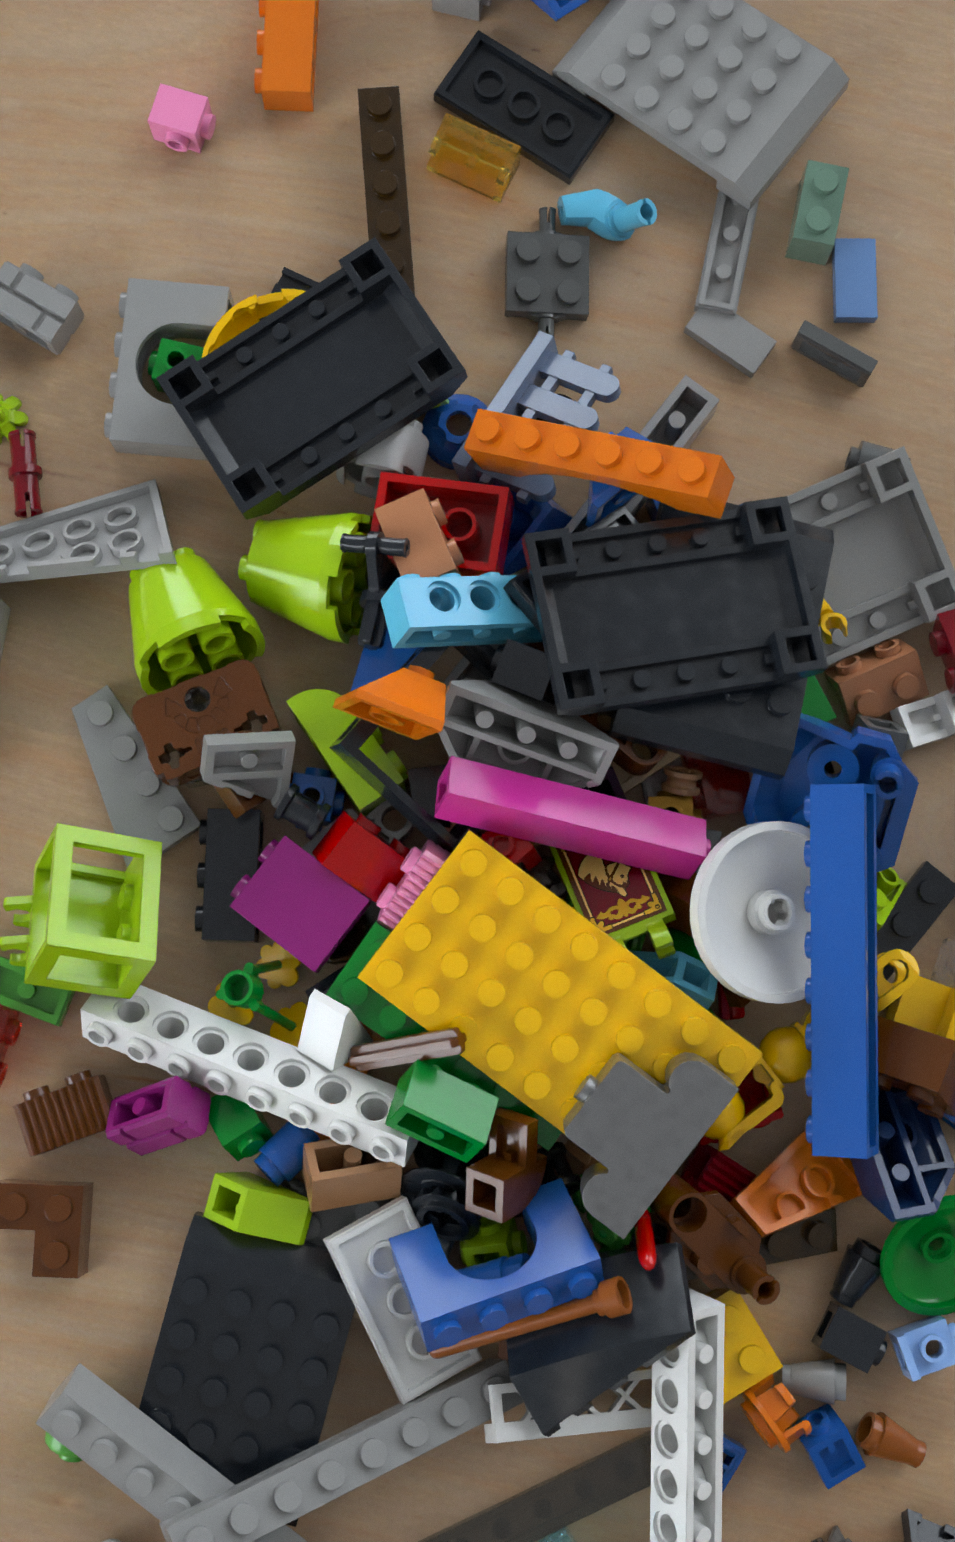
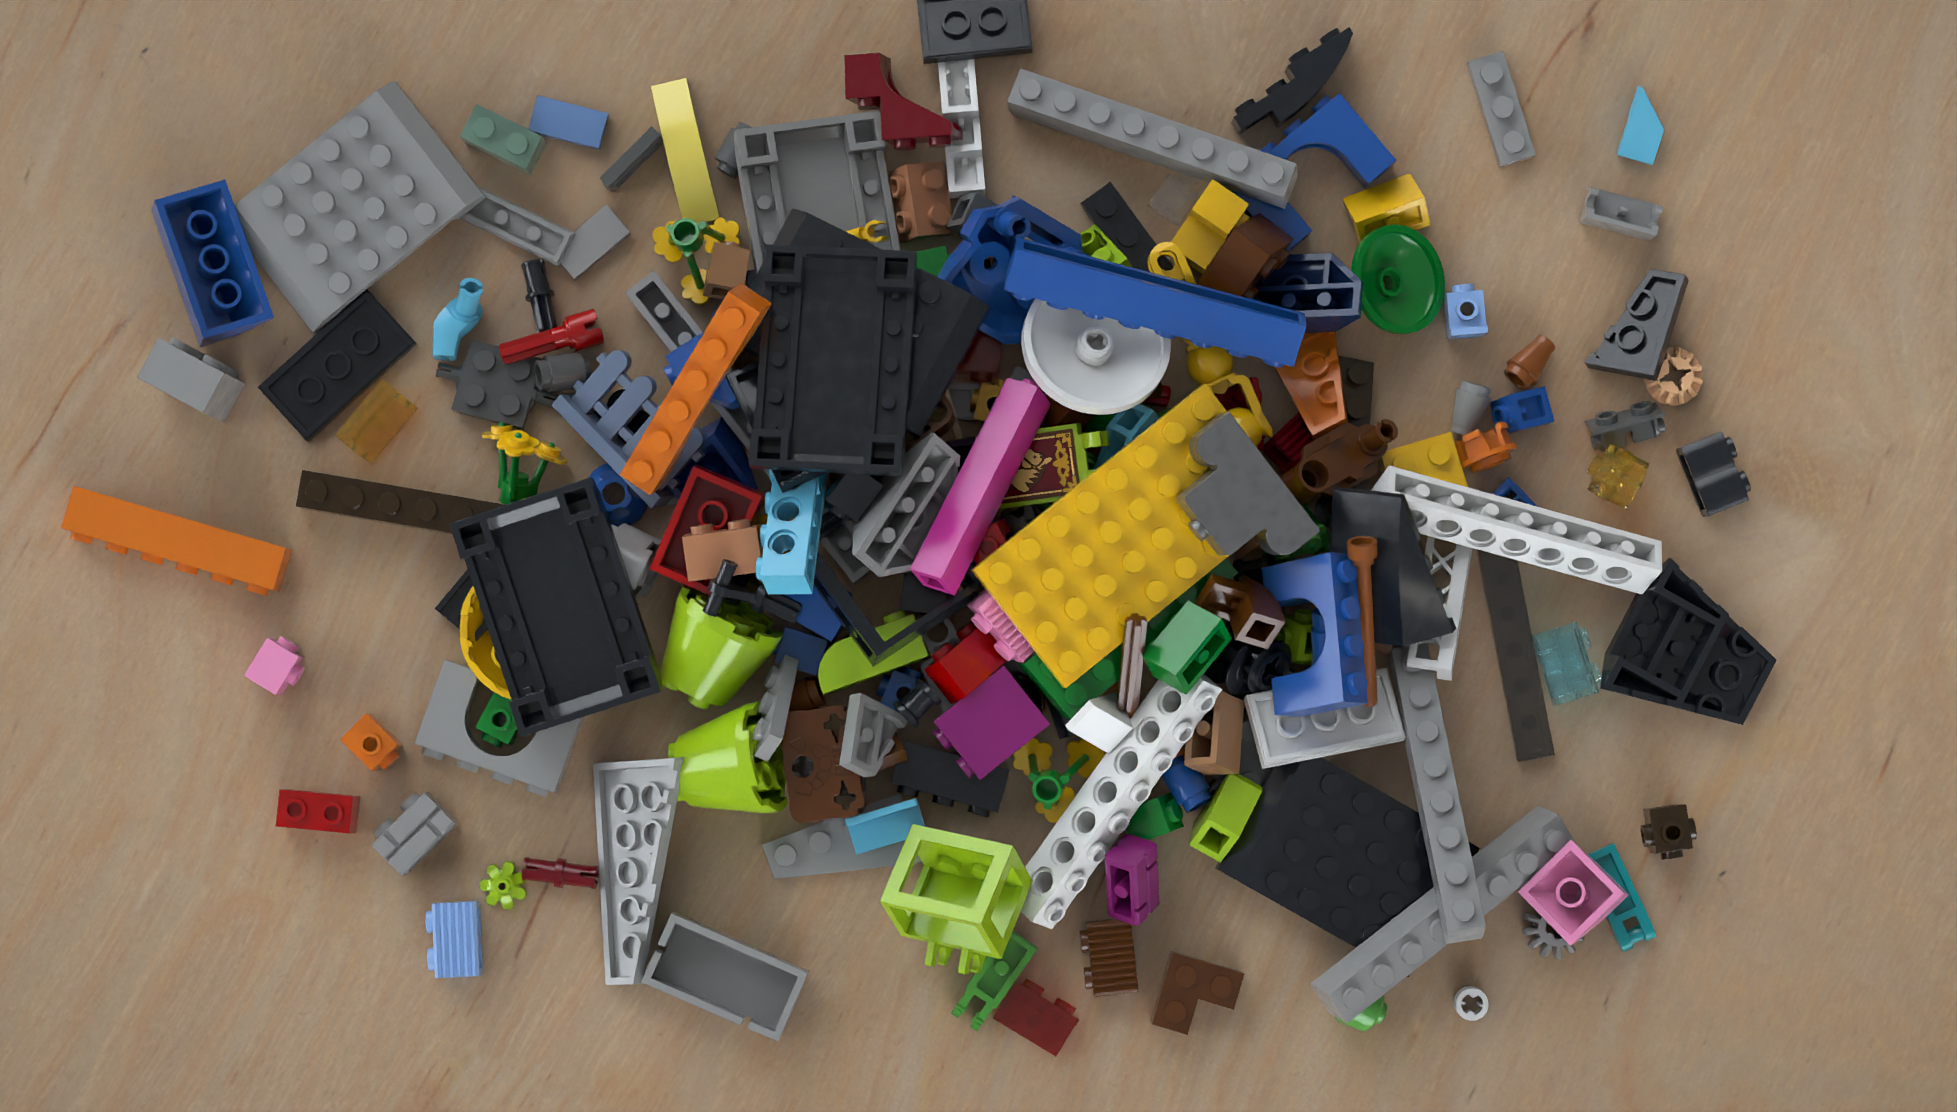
camera: 75 degrees left, 5 degrees up
(32, 199) = (317, 811): none -> red brick
(121, 238) = (372, 743): none -> orange brick
(157, 814) = (884, 825): none -> medium azure panel
(256, 649) = (775, 707): none -> light grey plate
(279, 682) = (807, 695): none -> dark orange cone
(334, 666) = (803, 647): none -> blue brick
(401, 701) = (856, 597): orange slope -> none
(487, 296) = (515, 484): none -> plant
(580, 334) = (561, 371): none -> dark grey brick
(627, 341) = (571, 334): none -> red piece
(645, 1241) = (1325, 514): red piece -> none
(657, 294) = (539, 294): none -> black axle
(681, 780) = (966, 387): medium nougat bush -> none
(752, 480) = (725, 269): none -> medium nougat brick
(761, 424) = (686, 238): none -> plant
(850, 1338) = (1443, 371): black brick -> none
(855, 410) = (685, 151): none -> light yellow slope
(857, 1272) = (1394, 352): black cone -> none

